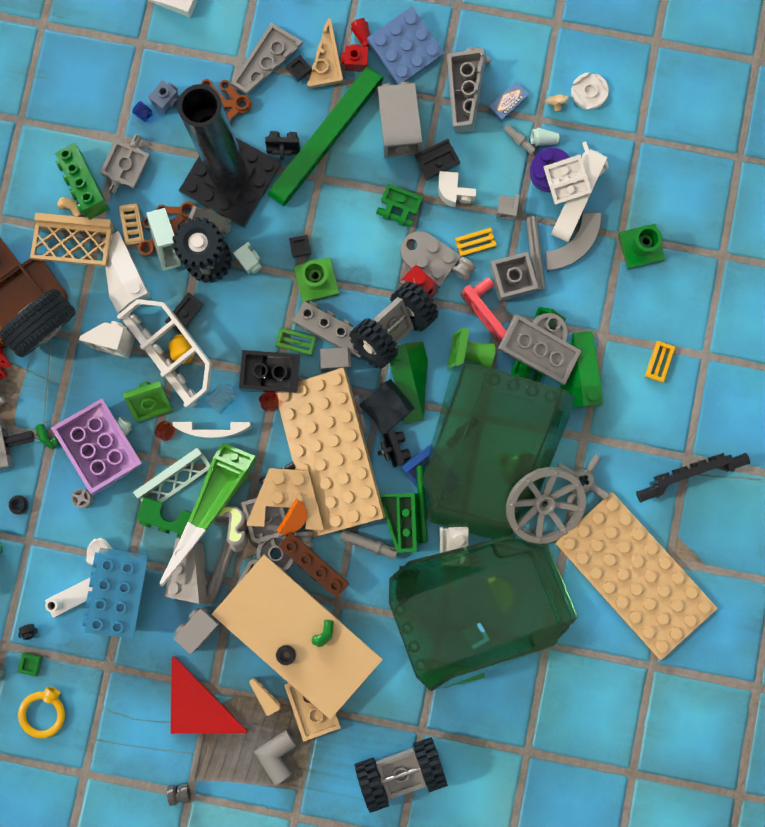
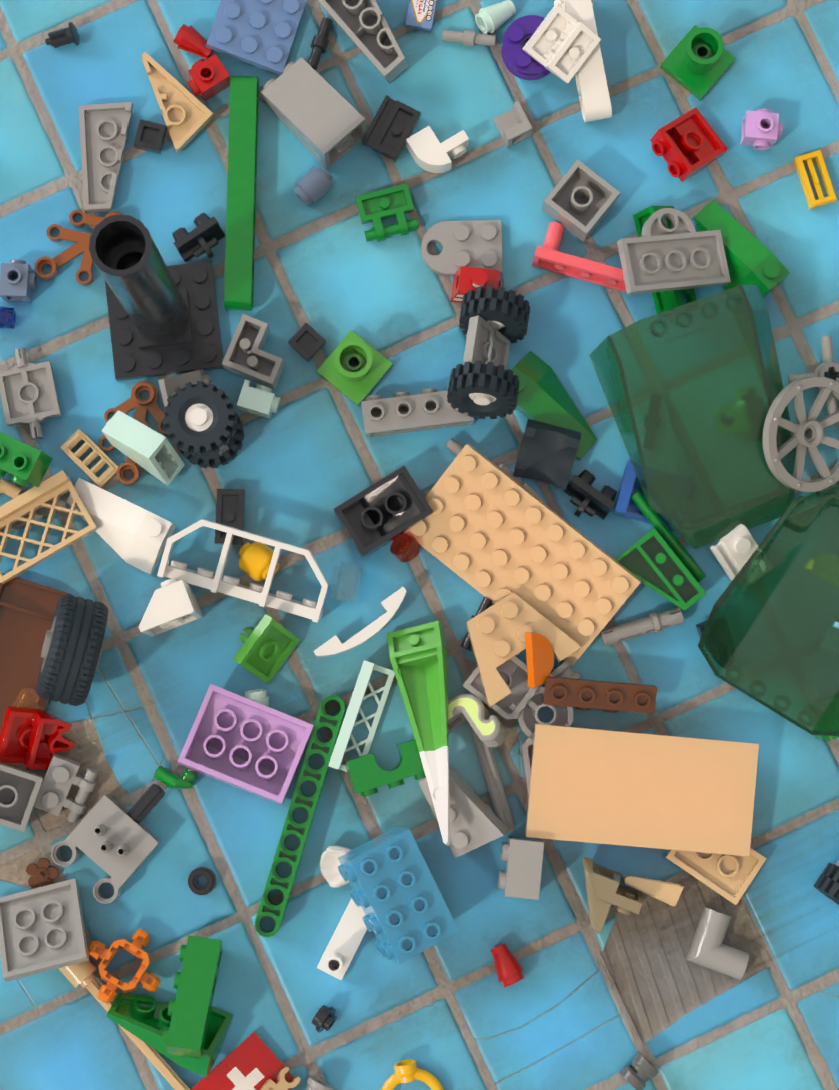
camera: 40 degrees left, 0 degrees up
(30, 664) = (354, 1054): green tile -> none
(78, 497) = (268, 818): light grey wheel -> none
(89, 510) = (291, 826): none -> green beam
(149, 680) = (506, 966): none -> red cone
(164, 431) = (309, 669): clear red tile -> none
(196, 708) = (584, 960): red tile -> none
(234, 678) = (604, 890): none -> dark tan piece
(260, 227) = (246, 354): none -> light grey brick
(285, 661) = (654, 823): black plate -> none
(307, 352) = (363, 464): bright green tile -> none
(324, 637) = (676, 763): green arm -> none
(334, 359) = (446, 443): light grey slope -> none
(369, 160) = (313, 185): none -> sand blue brick
(432, 83) = (320, 43): none -> black bar
(464, 268) = (516, 231): light grey wheel -> none
(467, 351) = (587, 326): bright green plant -> none
(473, 235) = (519, 175): yellow tile -> none
(535, 251) = (578, 150): light grey axle -> none
(578, 246) = (626, 112): light grey tile -> none
(599, 289) = (687, 144): none -> red plate
(648, 310) = (761, 129): none -> lavender brick

